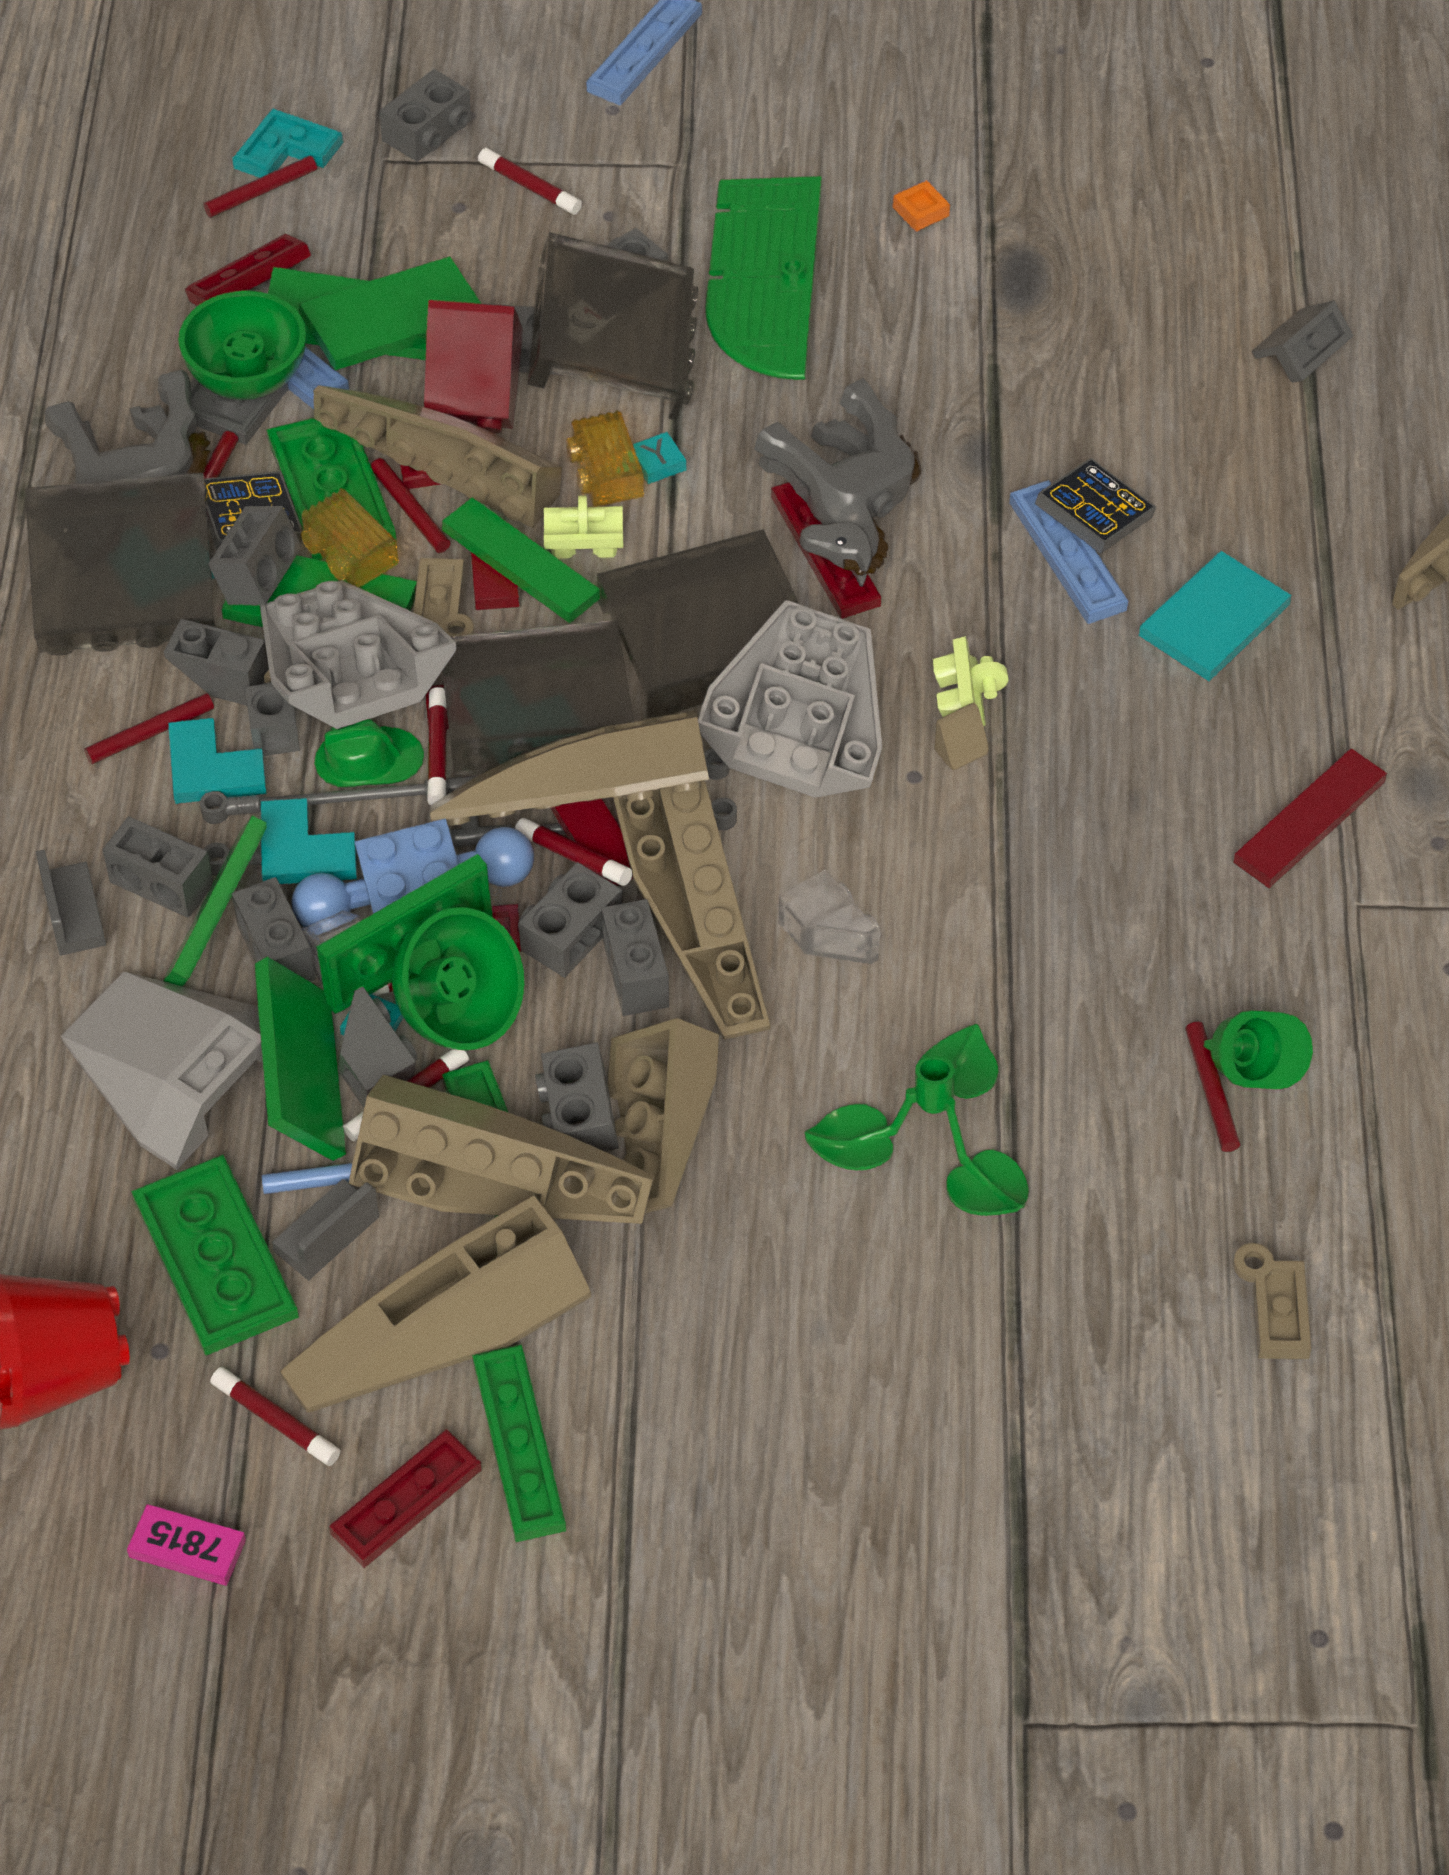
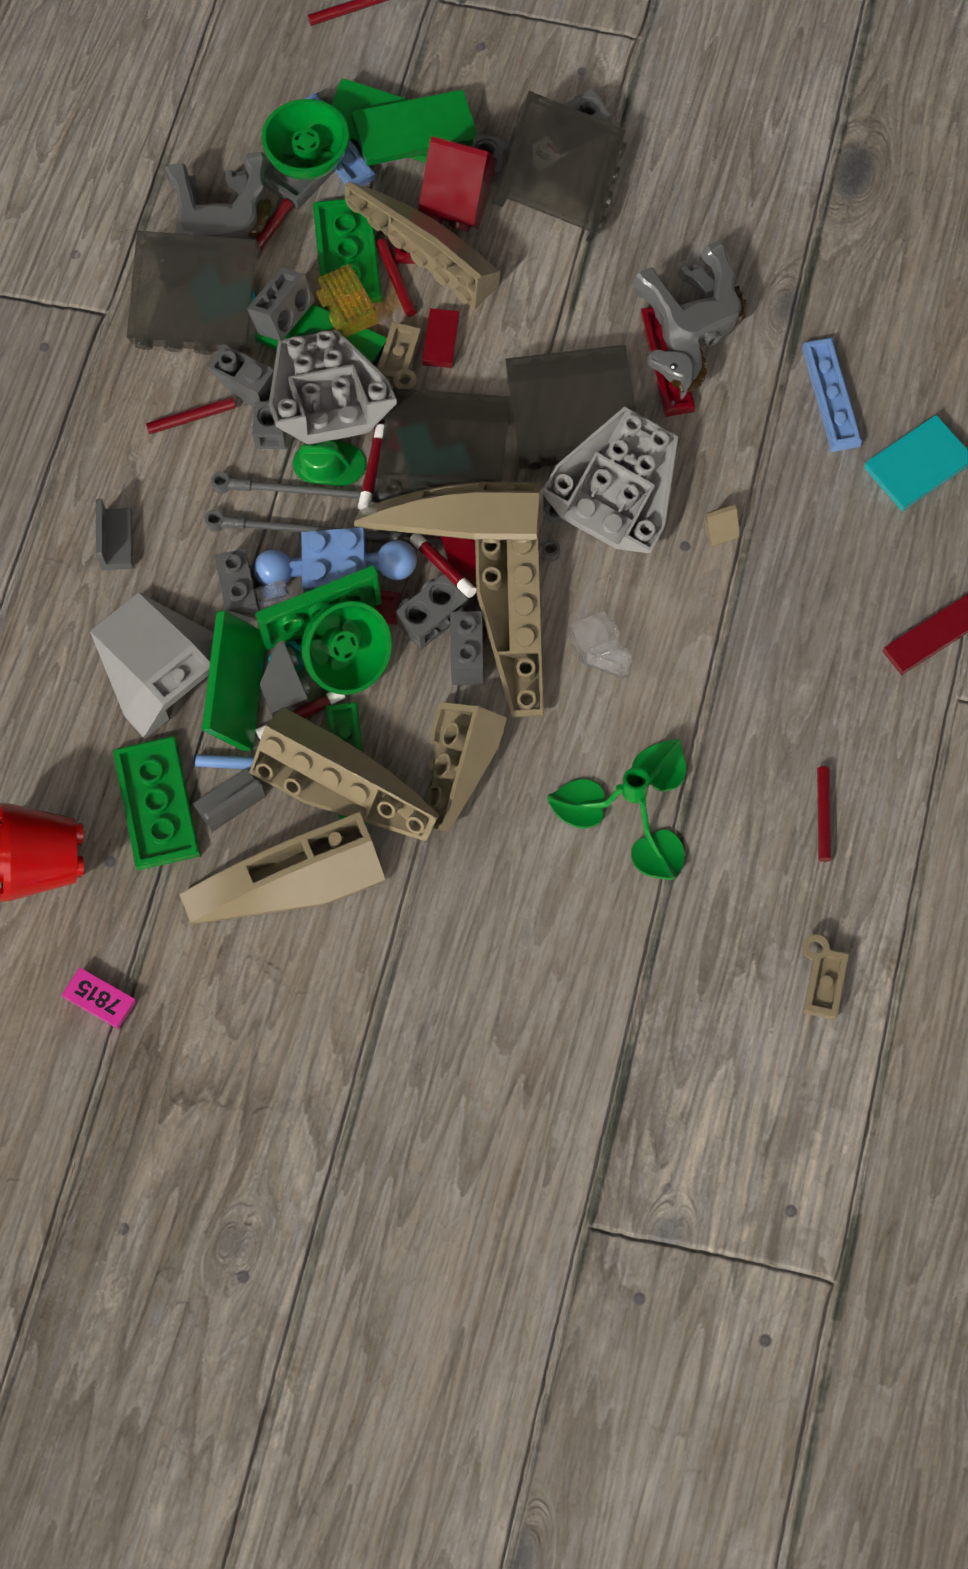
camera: 15 degrees right, 15 degrees up
(158, 866) = (173, 523): dark grey brick -> none
(201, 769) = (218, 453): teal tile -> none
(215, 902) = (204, 556): green tile -> none
(231, 494) = (291, 253): black tile -> none
(250, 269) = (325, 75): dark red tile -> none
(275, 1416) = (171, 922): dark red bar -> none
(294, 854) = (262, 530): teal tile -> none
(405, 1498) = (239, 995): dark red tile -> none
(519, 1443) = (317, 972): green tile -> none
(521, 560) = (458, 336): green tile -> none
(530, 181) = (532, 34): dark red bar -> none
(582, 1100) = (414, 743): dark grey brick -> none
(583, 529) = (505, 319): yellowish green hips -> none
(605, 459) = (534, 267): clear yellow brick -> none
(659, 457) = (570, 270): teal tile -> none
(767, 270) = (680, 133): green door -> none
(921, 205) = (798, 102): orange plate -> none
(971, 678) = (741, 484): yellowish green hips -> none
(1095, 505) = (858, 364): tile -> none
(1261, 1049) = (861, 797): green piece -> none

